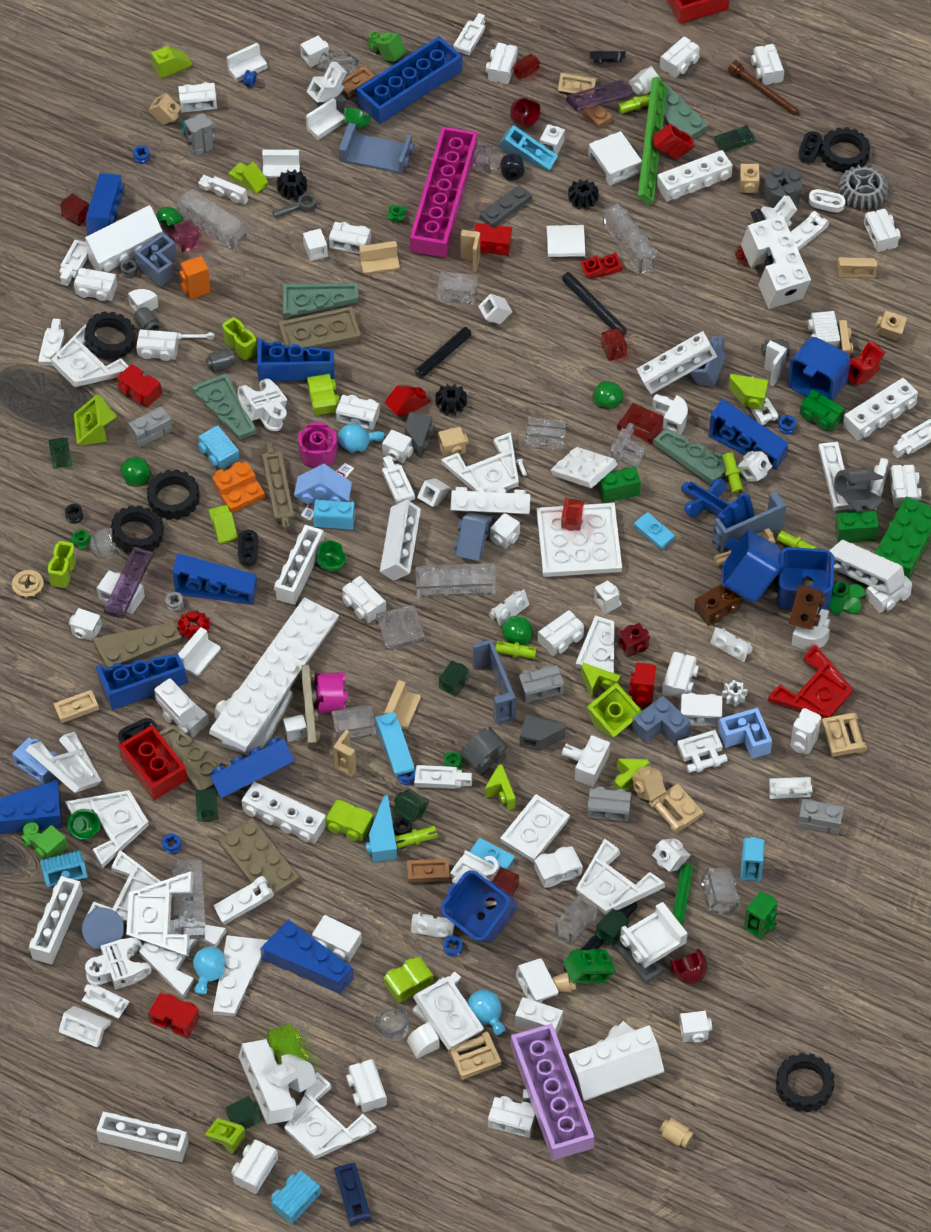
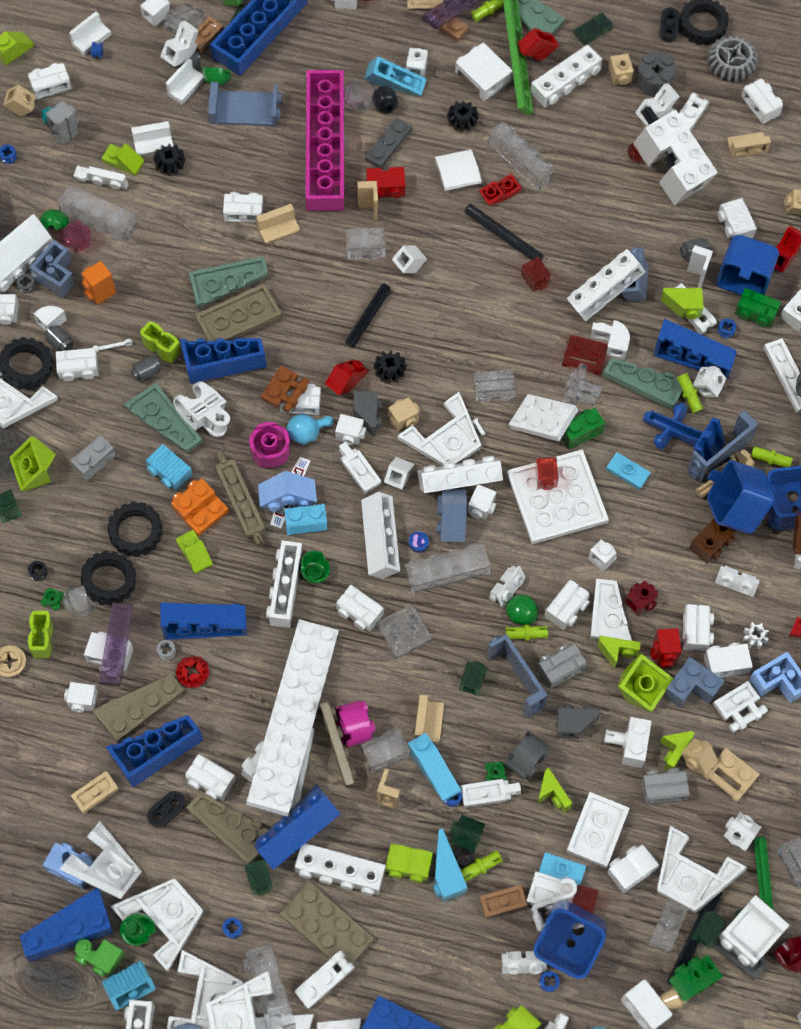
camera: 15 degrees left, 10 degrees up
(135, 471) = (89, 510): green hair -> none
(138, 387) = (69, 415): red brick -> none
(153, 762) = (191, 842): red brick -> none
(175, 702) = (200, 773): white brick -> none
(198, 652) = (206, 704): white panel -> none
(248, 549) = (228, 574): black plate -> none
(291, 208) = (175, 184): dark grey piece -> none
(295, 728) = (325, 767): white brick -> none
(315, 244) = (209, 221): white panel -> none
(322, 394) = (255, 382): lime brick -> none
(338, 937) = (430, 1001): white brick -> none
(340, 394) = (280, 385): none -> dark orange plate
(396, 213) = (286, 174): green plate -> none
(436, 555) = (418, 542): none -> blue tile
(525, 112) = (382, 38): dark red hair -> none
(607, 395) = (543, 330): green hair -> none
(826, 200) = (700, 79): white plate -> none
(845, 335) = (762, 233): tan plate -> none

